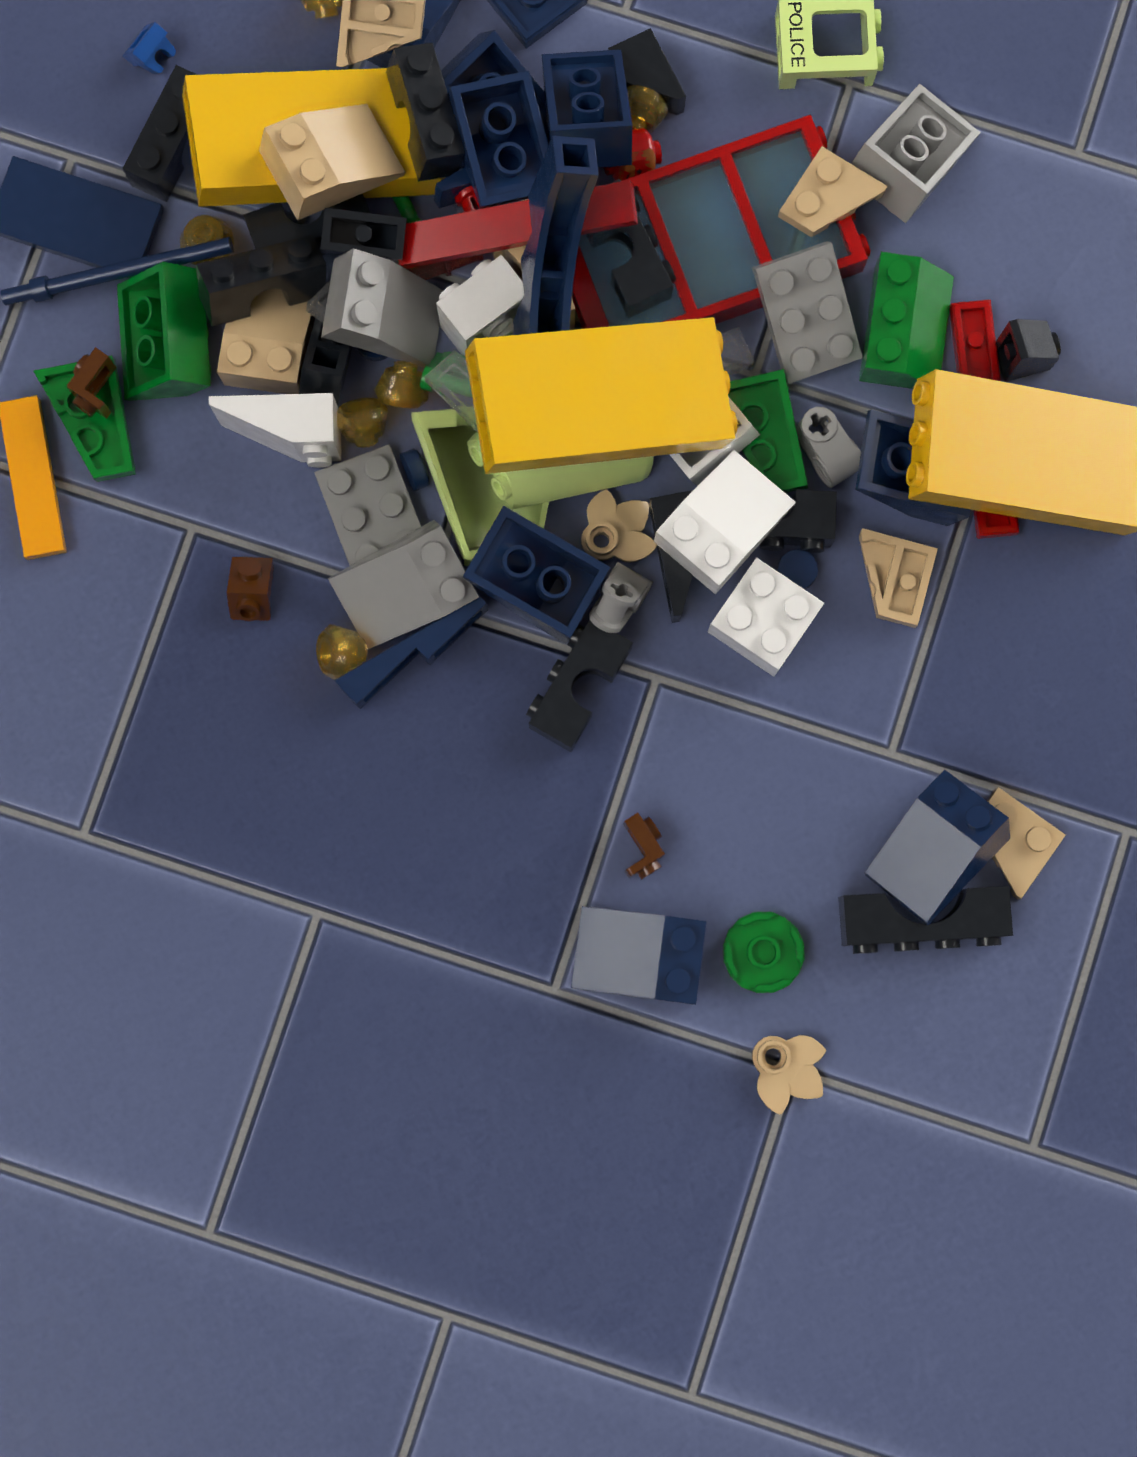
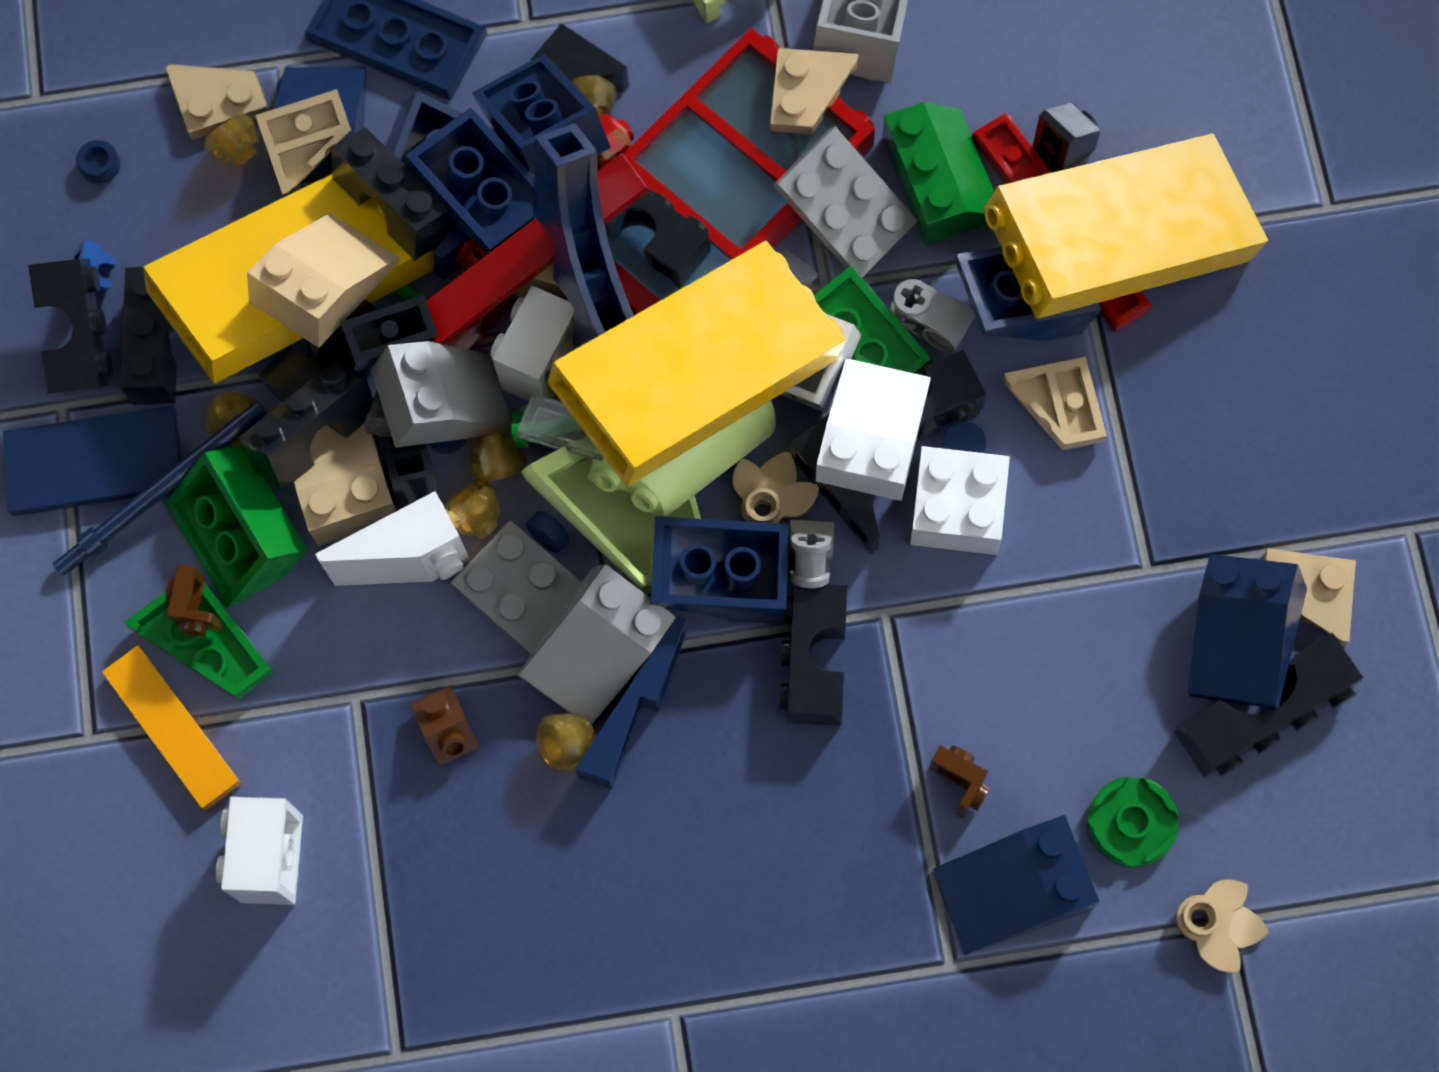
camera: 20 degrees left, 10 degrees down
(51, 617) = (260, 850): none -> white brick
(122, 62) = (72, 288): none -> black arch

